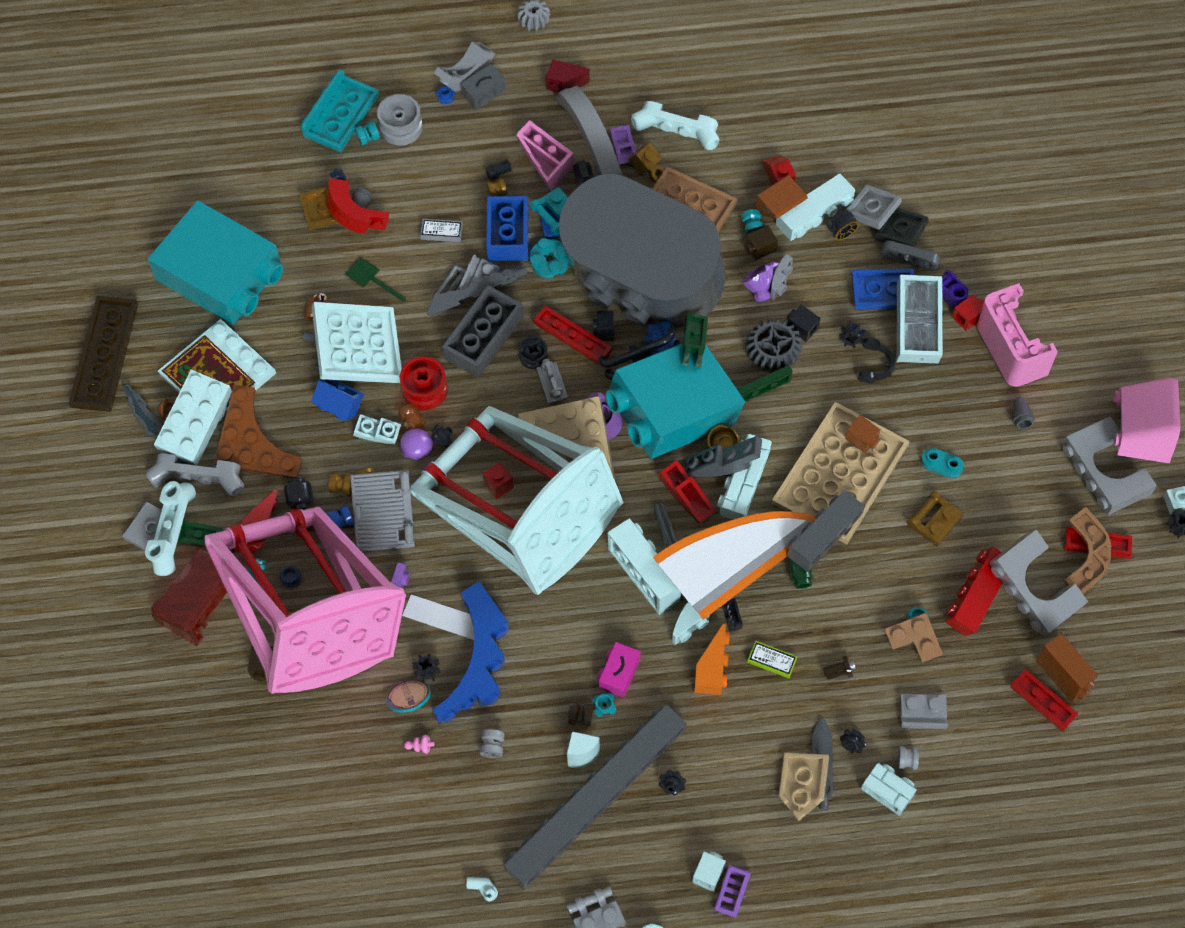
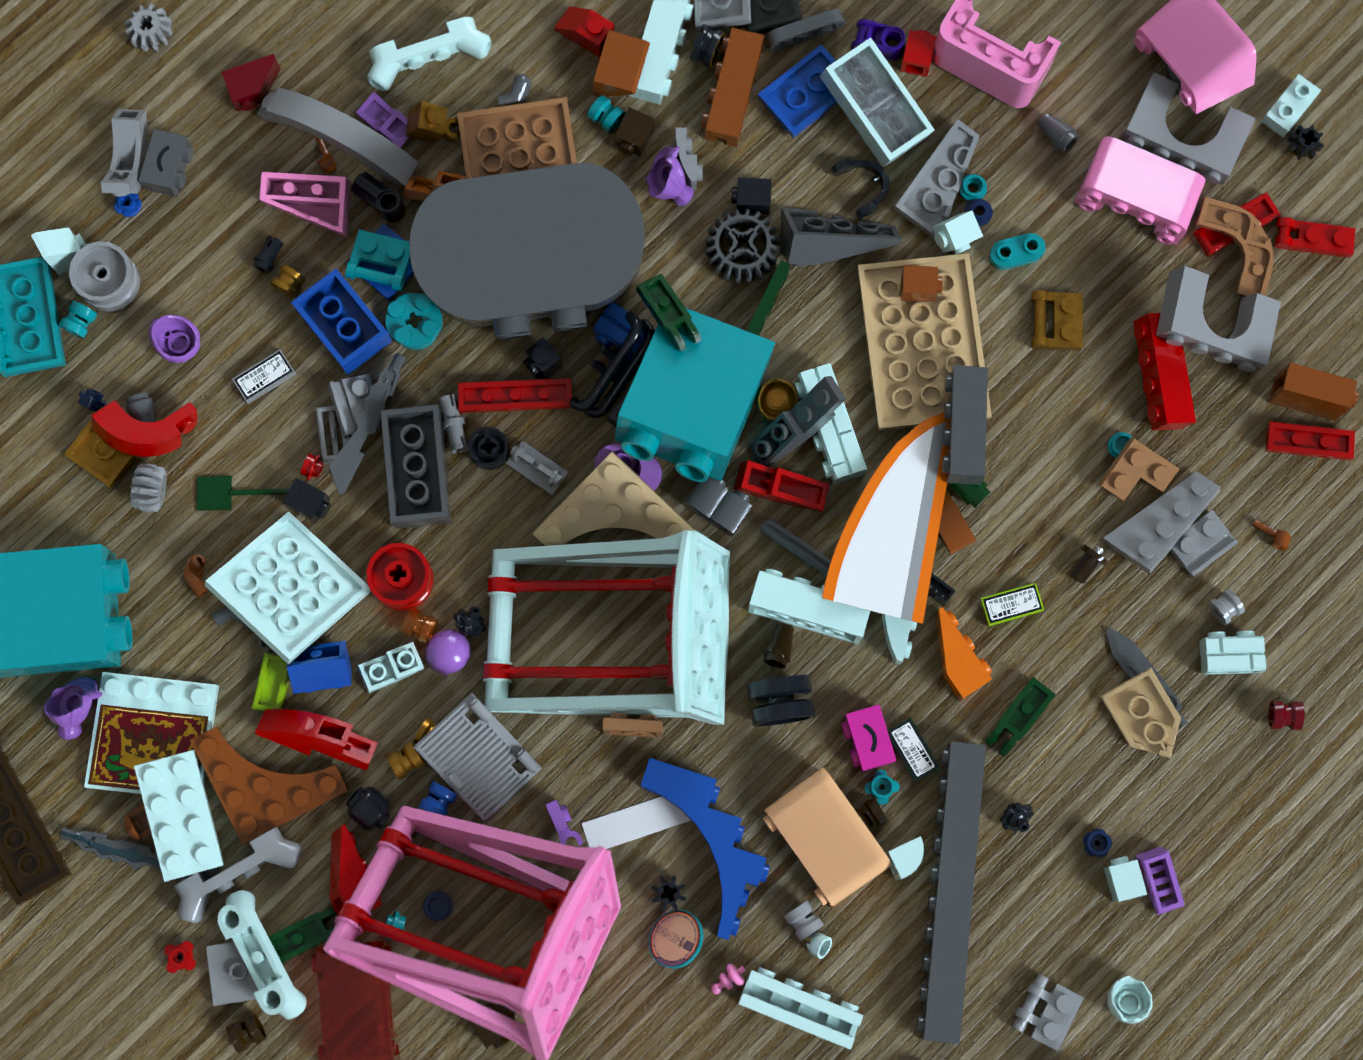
camera: 40 degrees left, 15 degrees up
(126, 563) = (246, 1033): none -> dark brown wheel
(130, 502) = (186, 962): none -> red plate
(187, 323) = (71, 705): none -> medium lavender hair
(302, 393) = (271, 683): none -> lime tile
(309, 436) = (310, 731): none -> red slope
(328, 240) = (148, 487): none -> light grey gear
(386, 85) = (58, 247): none -> light aqua slope
(407, 308) = (307, 501): none -> black brick
(409, 175) = (174, 338): none -> medium lavender hair
(426, 293) = (312, 466): none -> red plate
(447, 793) = (800, 1009): none -> light aqua brick
(485, 558) = (620, 725): none -> medium nougat plate
(492, 770) = (819, 945): none -> light aqua hinge
(498, 480) = (573, 626): red brick -> none
(524, 325) = (453, 424): none -> light grey pin
(544, 706) = (827, 837): none -> light nougat windscreen
(572, 145) = (327, 162): none -> dark orange hand
(583, 605) = (780, 696): none -> black wheel
(609, 579) = (779, 647): none -> dark brown cone
(639, 475) = (719, 505): none -> dark grey brick
(641, 697) = (912, 750): none -> tile
(710, 831) = (1099, 835): none -> dark blue plate
(712, 179) = (518, 92): none -> dark grey arm
(724, 726) = (1022, 714): none -> dark green hinge
(771, 585) = (953, 528): none -> dark orange slope
(820, 370) = (819, 240): none -> dark grey wedge
(841, 257) = (733, 87): none -> dark orange brick
(851, 340) = (815, 172): black gear -> none
(853, 741) = (1160, 631): black plant -> none
(895, 851) = (1285, 715): none -> dark red wheel
(903, 680) = (1159, 526): none -> light grey wing
(911, 424) = (957, 232): none -> light aqua brick
(919, 392) = (935, 186): none -> light grey wing
(932, 429) = (985, 206): none -> dark blue plate
(943, 403) = (976, 180): none -> teal plate
(978, 744) = (1281, 537): none -> dark orange hand
(1051, 478) = (1142, 187): none -> windscreen
(1144, 585) = (1315, 237): none -> red plate

